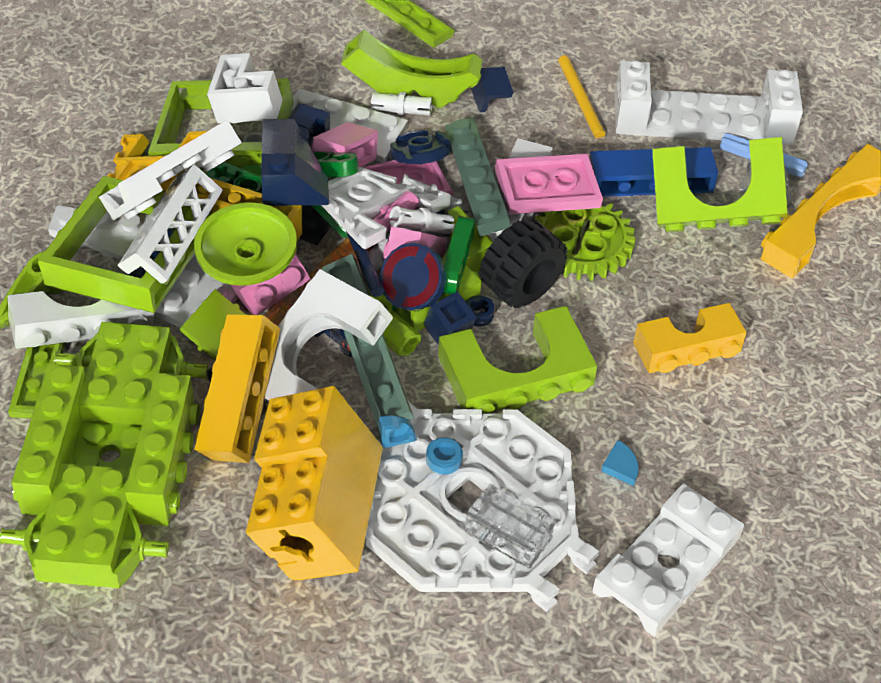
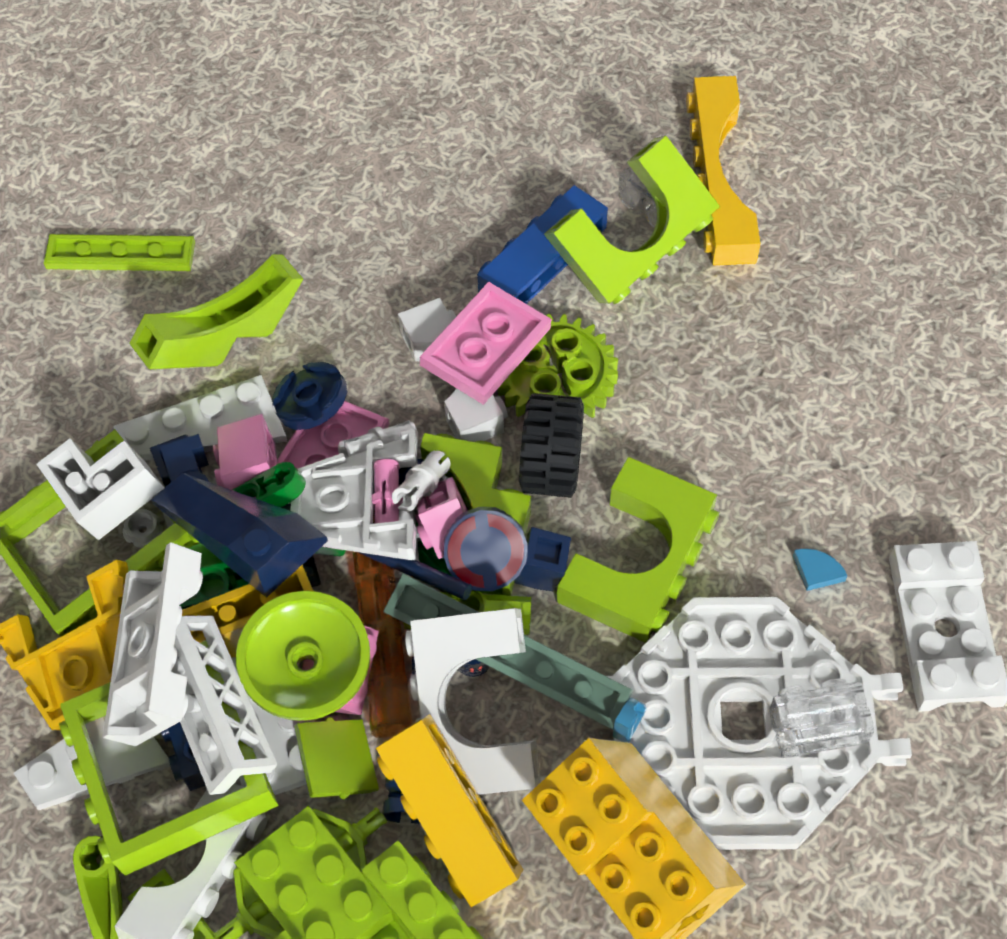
camera: 40 degrees left, 10 degrees up
(401, 104) = (234, 361): white pin -> none
(444, 455) = (689, 701): dark azure tile -> none
(458, 253) = (488, 482): green beam -> none
(477, 177) = (406, 386): sand green plate -> none
(478, 302) = (550, 512): dark blue bush -> none
(492, 85) = (315, 273): dark blue panel -> none
(581, 97) = (390, 217): yellow bar -> none
(665, 347) = (737, 423): yellow arch -> none
(705, 114) = (573, 114): white plate -> none
(740, 147) = (602, 156): light blue axle -> none

